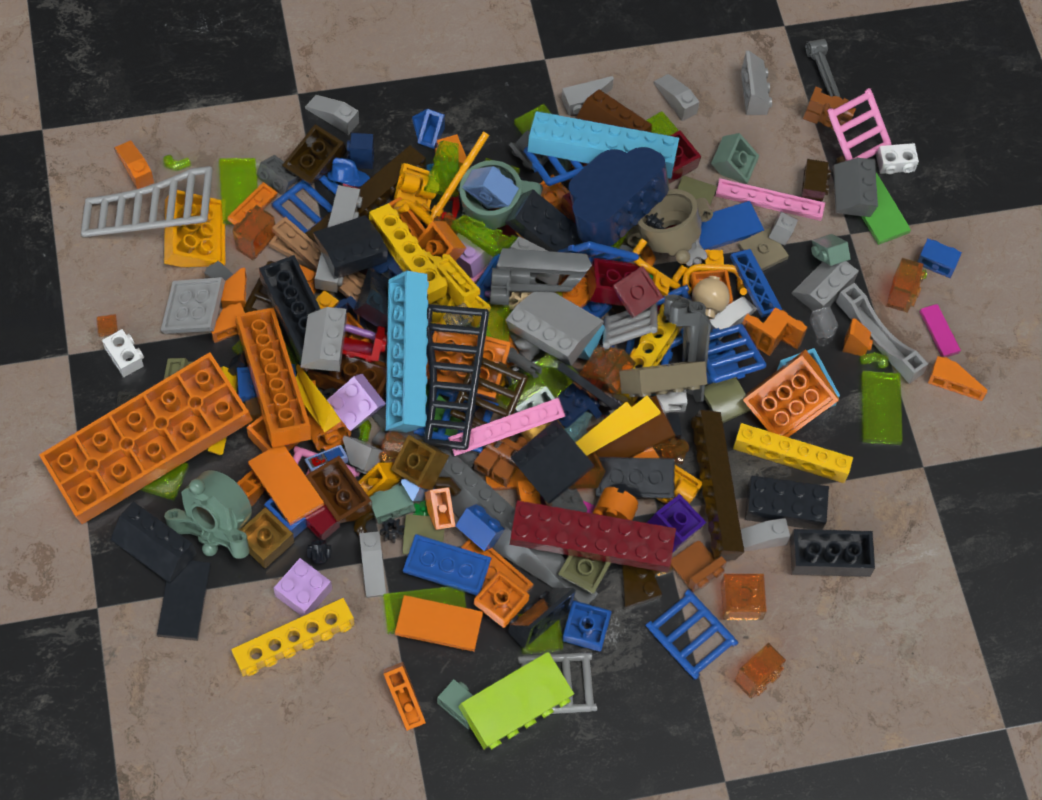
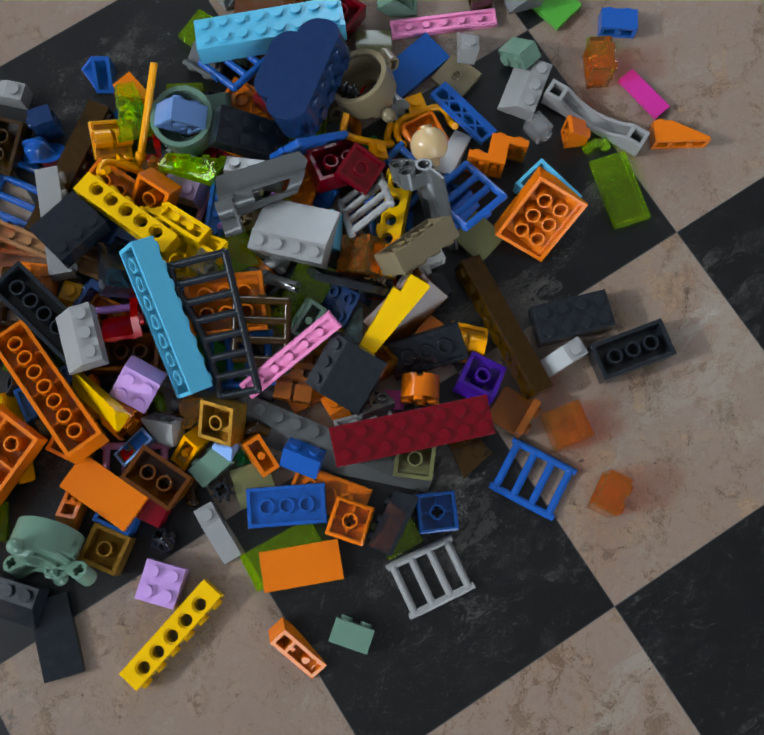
camera: 15 degrees left, 15 degrees up
(516, 701) = (402, 617): lime brick -> none
(674, 449) = (451, 309): clear orange rock -> none
(793, 453) = (558, 267): yellow brick -> none

